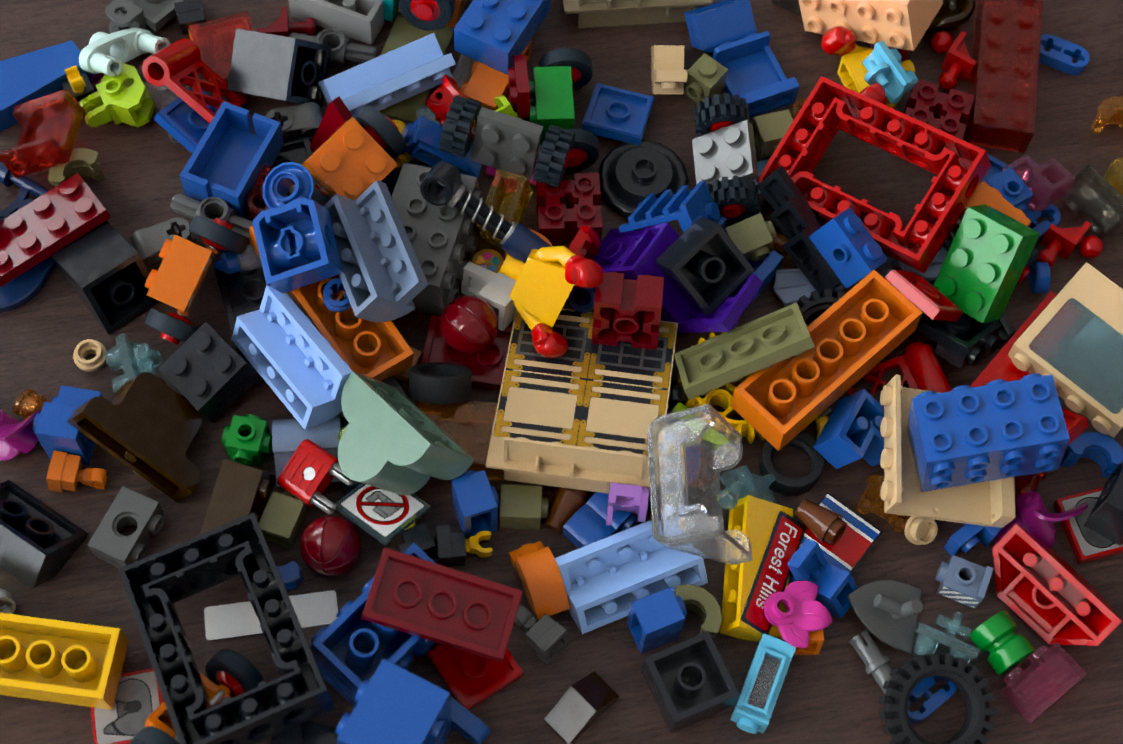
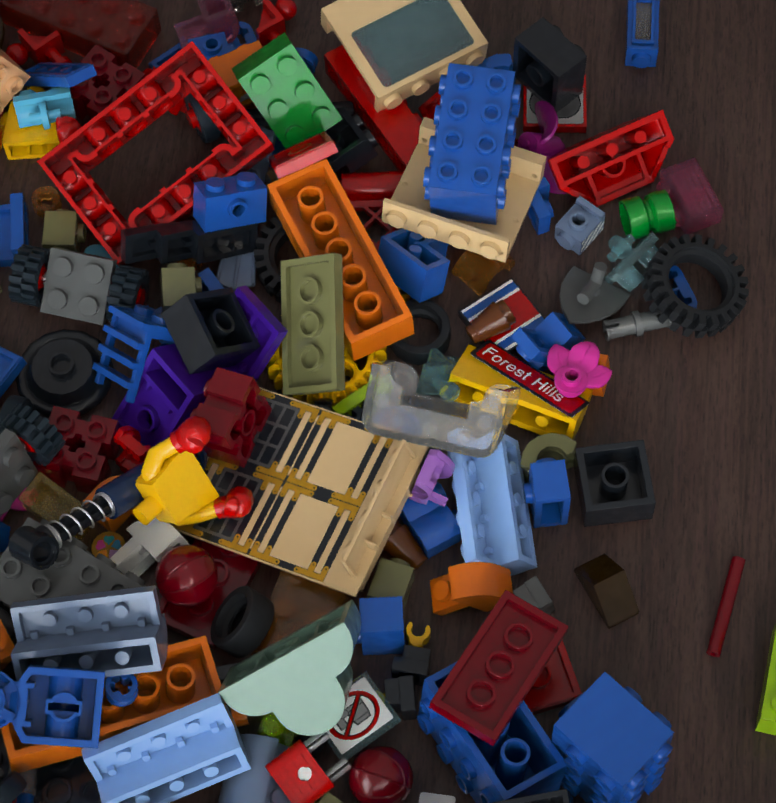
camera: 65 degrees left, 0 degrees up
(762, 684) = (628, 421): medium azure window -> none
(920, 530) = (522, 246): tan plate -> none
(924, 70) = (59, 74): none -> blue tile

